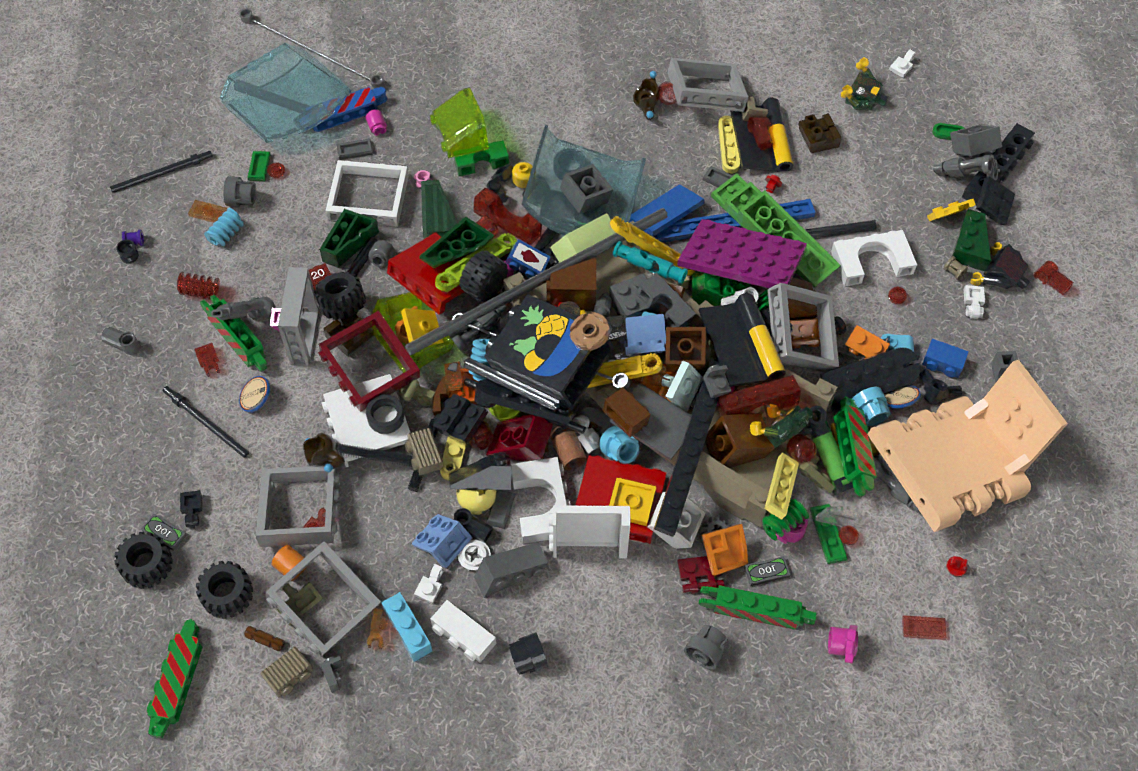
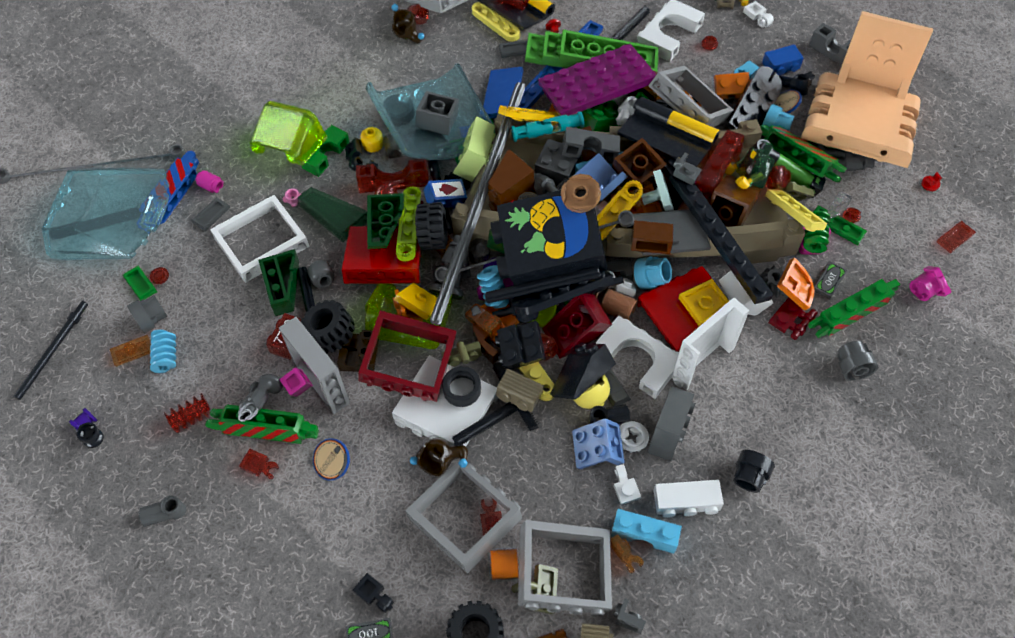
camera: 40 degrees left, 0 degrees up
(180, 400) = (268, 517): black bar -> none

